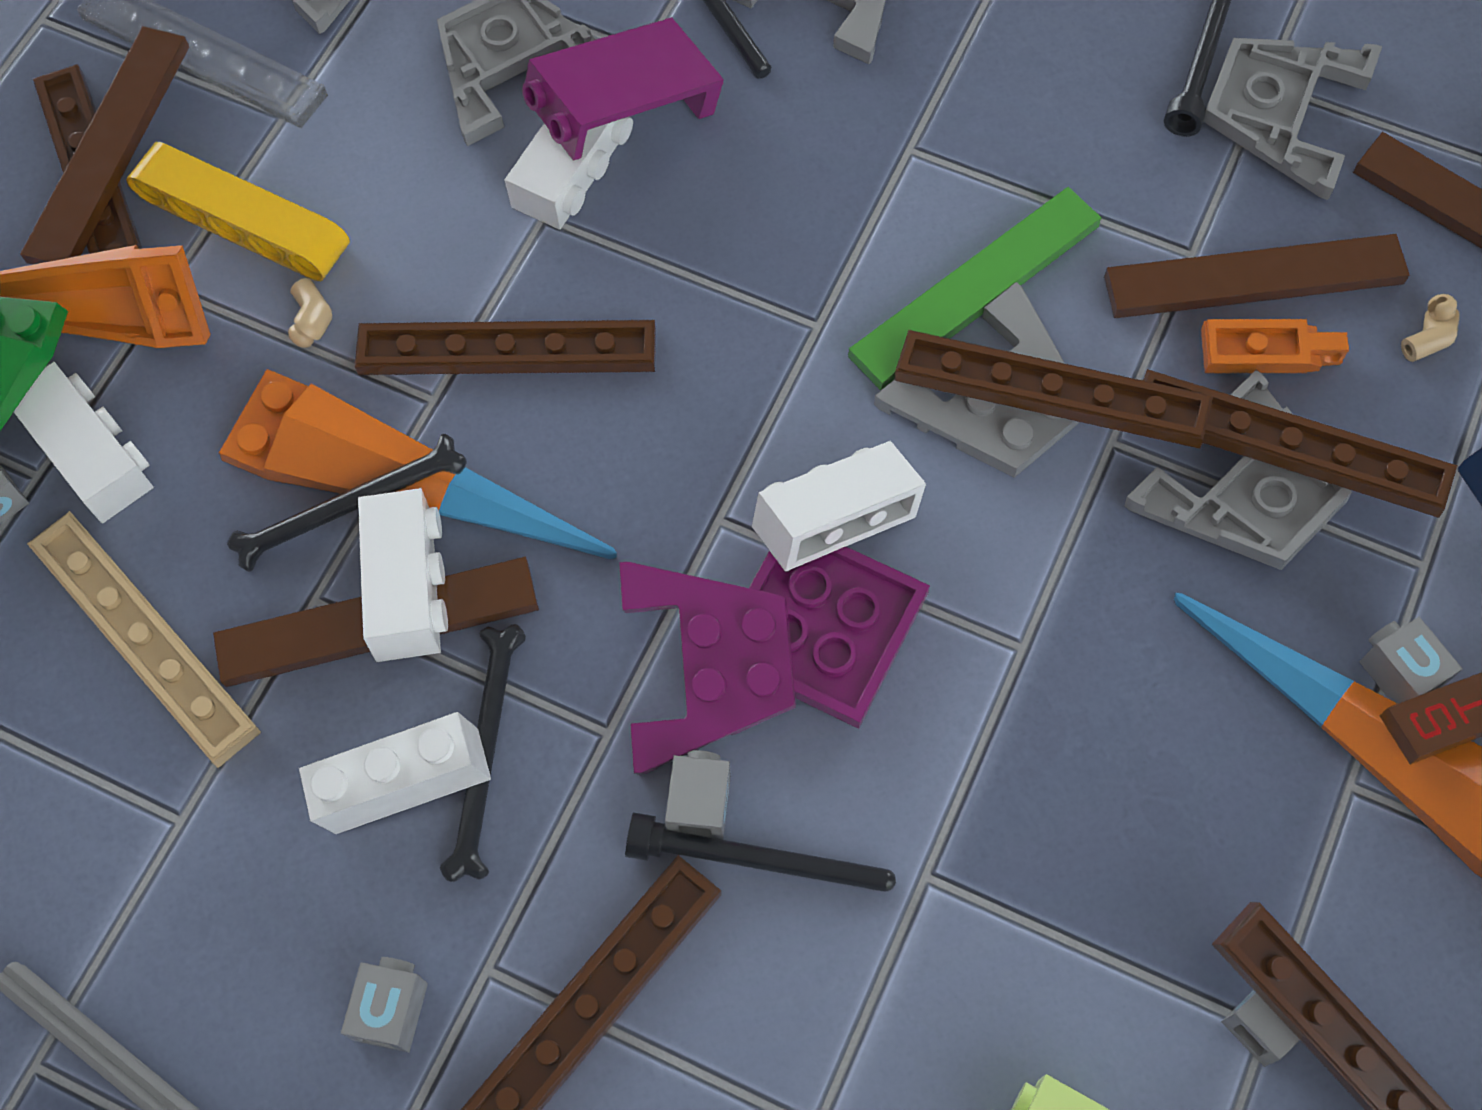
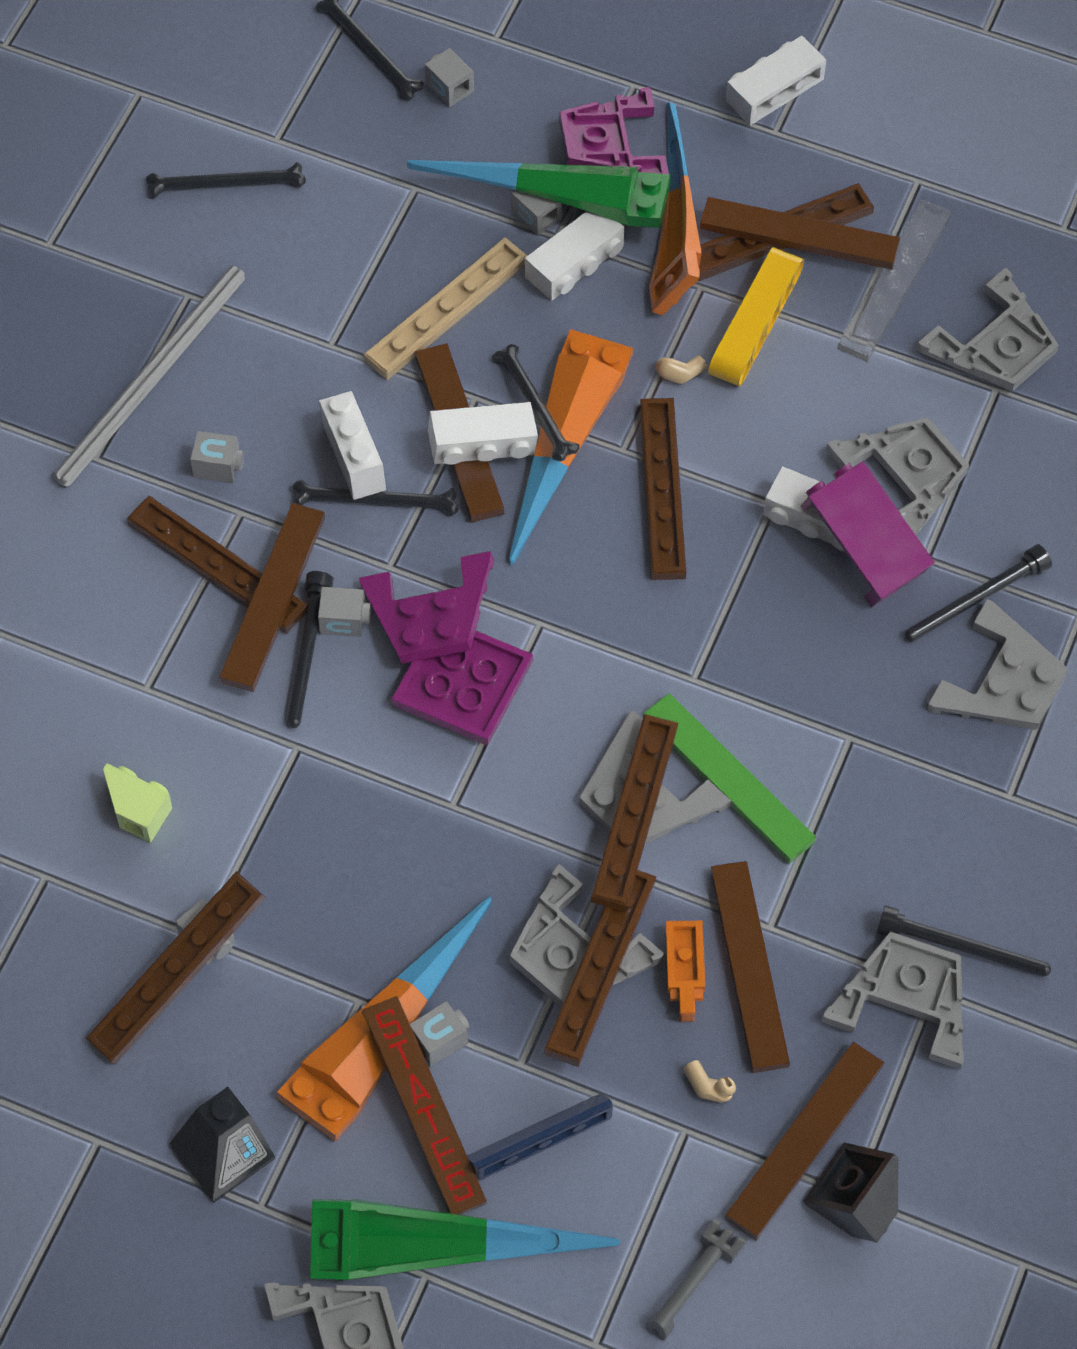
camera: 85 degrees right, 5 degrees down
(669, 907) = (272, 597): none -> reddish brown tile
(837, 505) = (539, 678): white brick -> none

